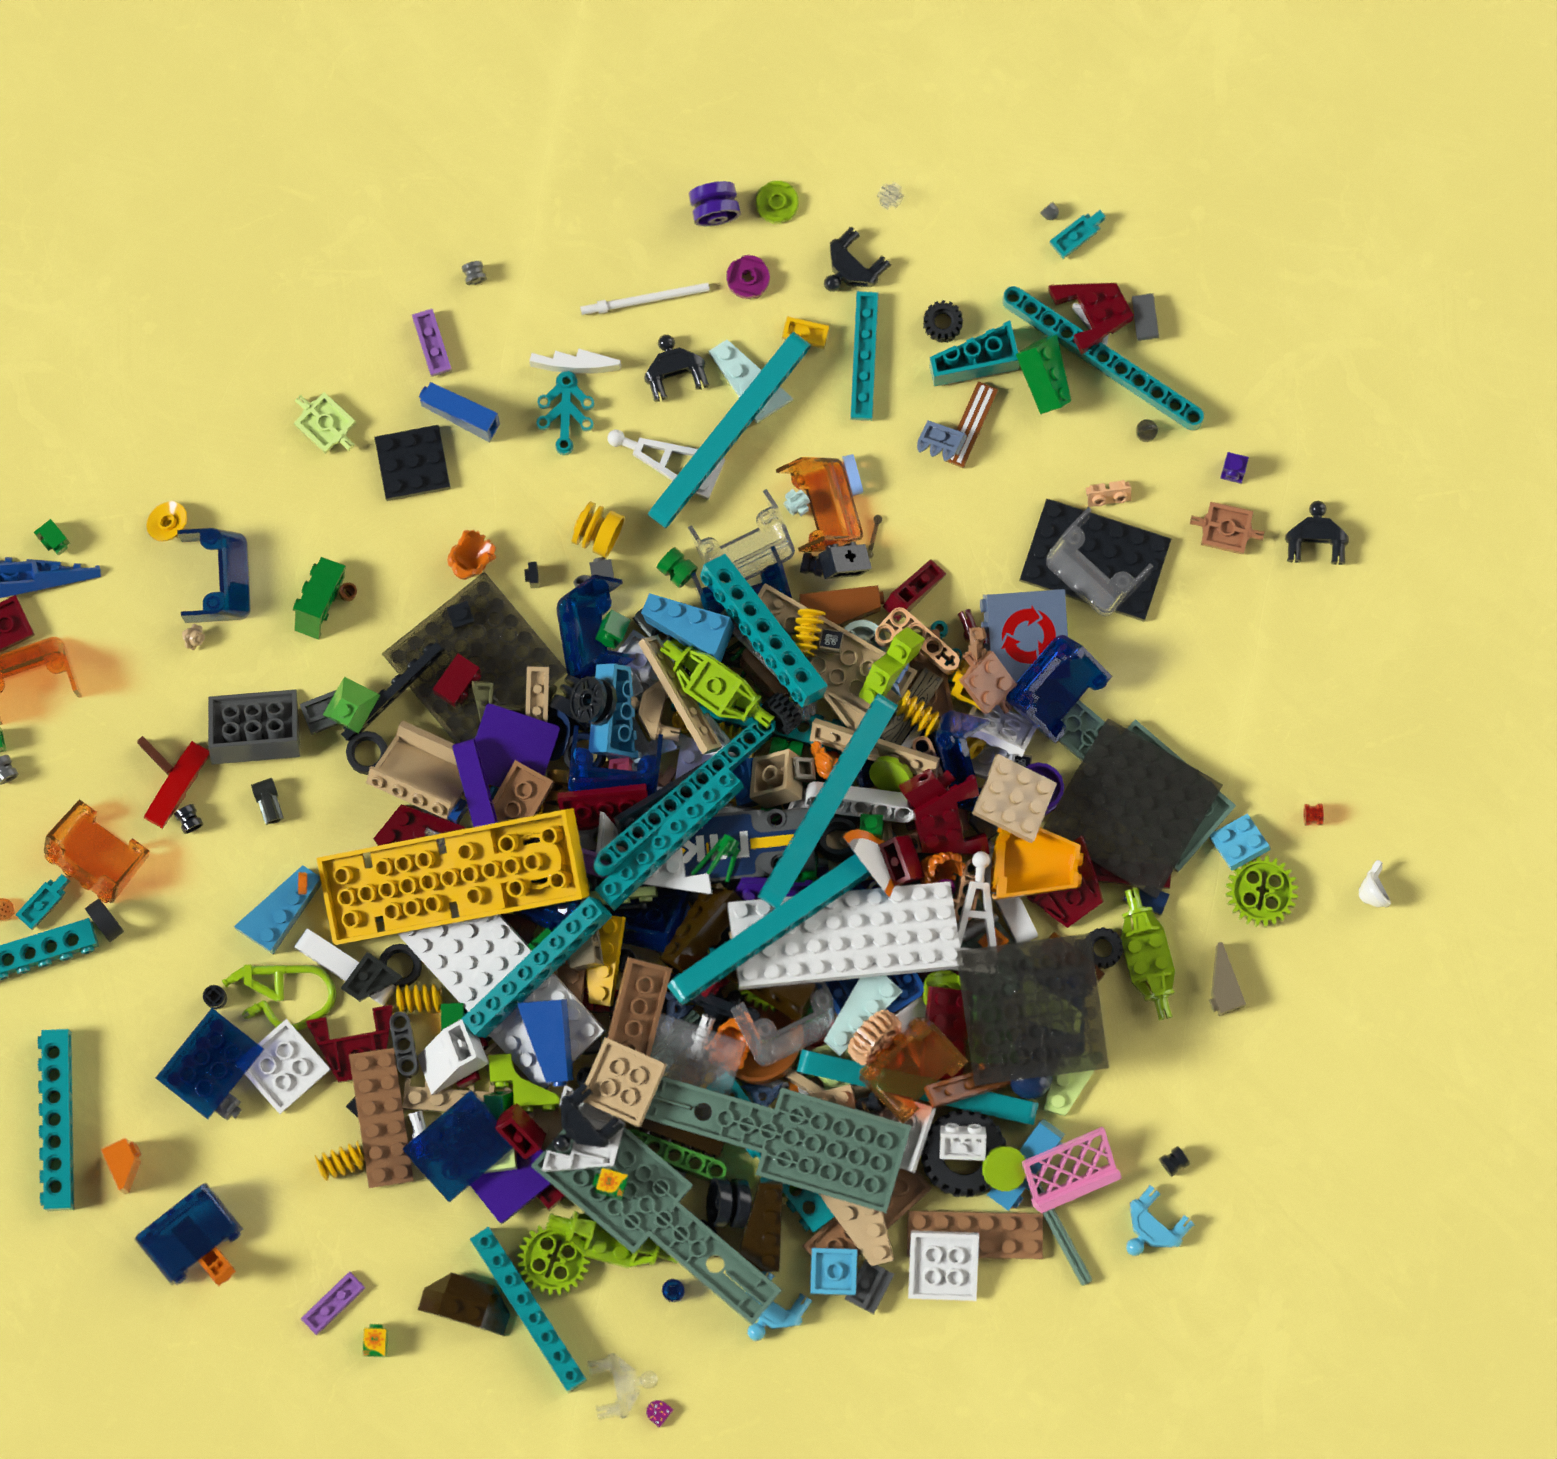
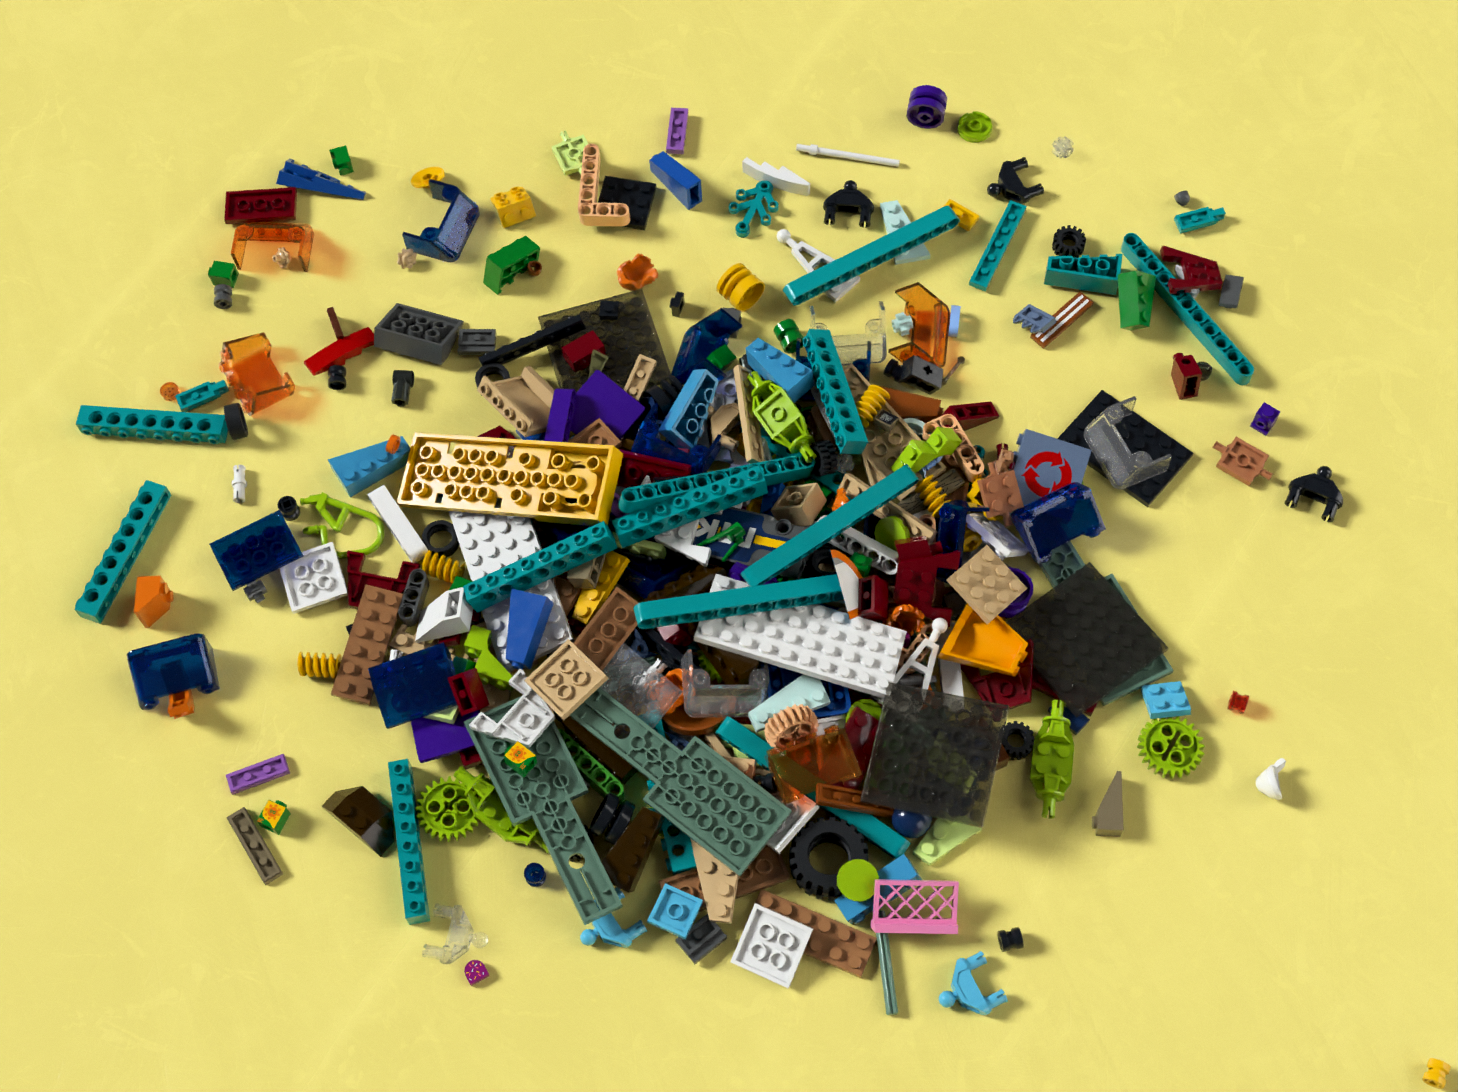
camera: 25 degrees right, 15 degrees down
(47, 692) = (282, 257): none -> tan plant
(142, 989) = (239, 484): none -> white pin
(284, 518) = (513, 206): none -> yellow bracket
(351, 705) = (495, 339): bright green slope -> none
(369, 978) = (410, 534): pearl dark grey wing -> none
(369, 1378) = (254, 845): none -> dark tan tile
(372, 470) = (593, 210): none -> light nougat beam
(474, 272) = (729, 97): dark grey wheel -> none
(579, 1127) = (514, 701): black connector -> none
(593, 701) = (677, 390): black wheel -> none
(758, 271) = (929, 174): magenta plate -> none
(804, 769) = (823, 503): dark tan slope -> none
(962, 1142) = (830, 843): white bracket -> none
(1118, 493) = (1154, 405): light nougat hinge -> none
(1131, 447) = (1186, 376): none -> dark red torso

